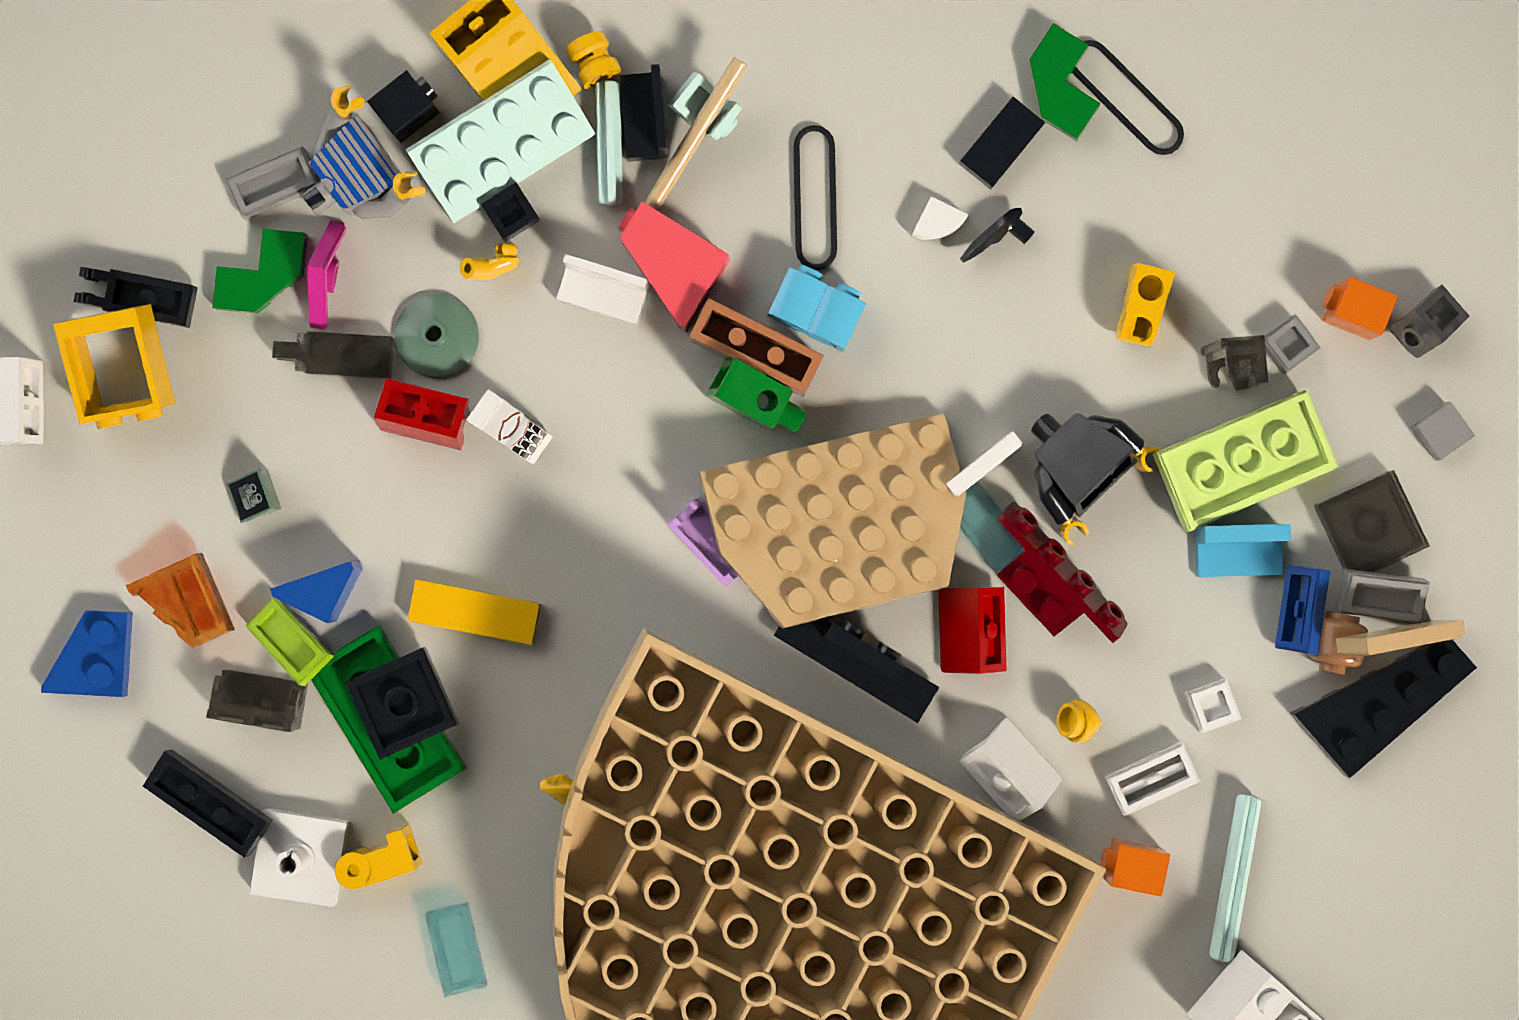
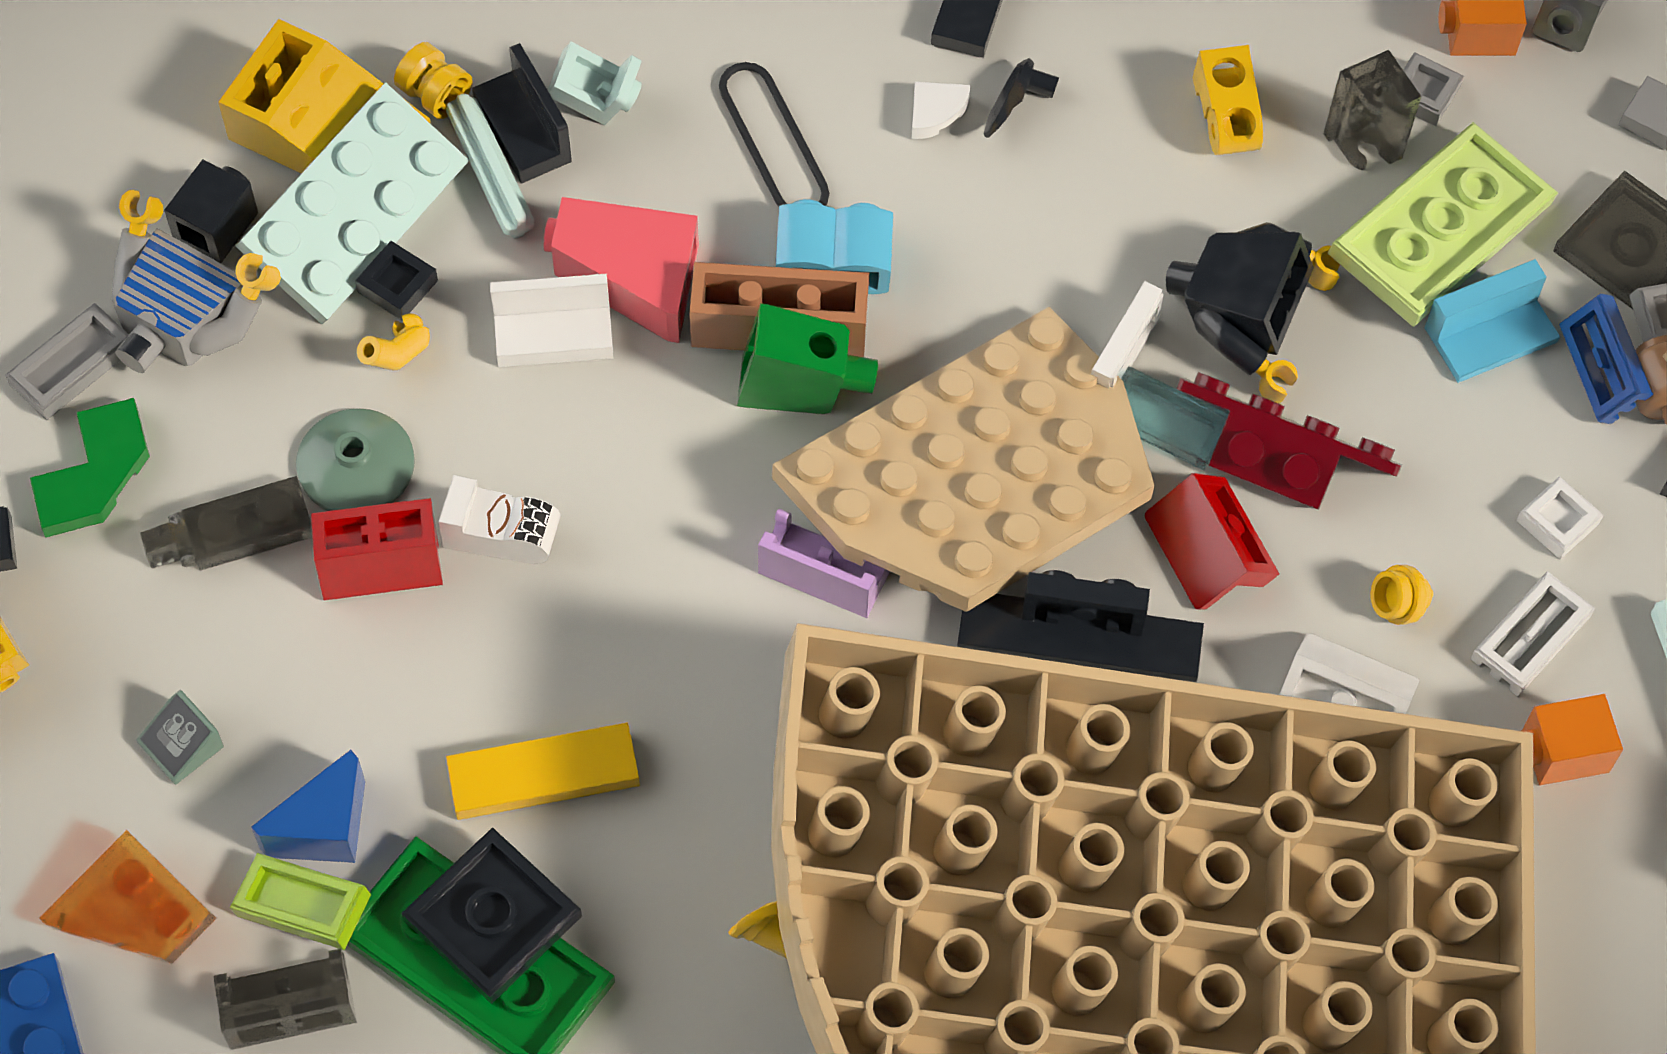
camera: 30 degrees left, 25 degrees down
(323, 273) = (180, 441): dark pink tile -> none
(696, 133) = (597, 101): tan bar -> none

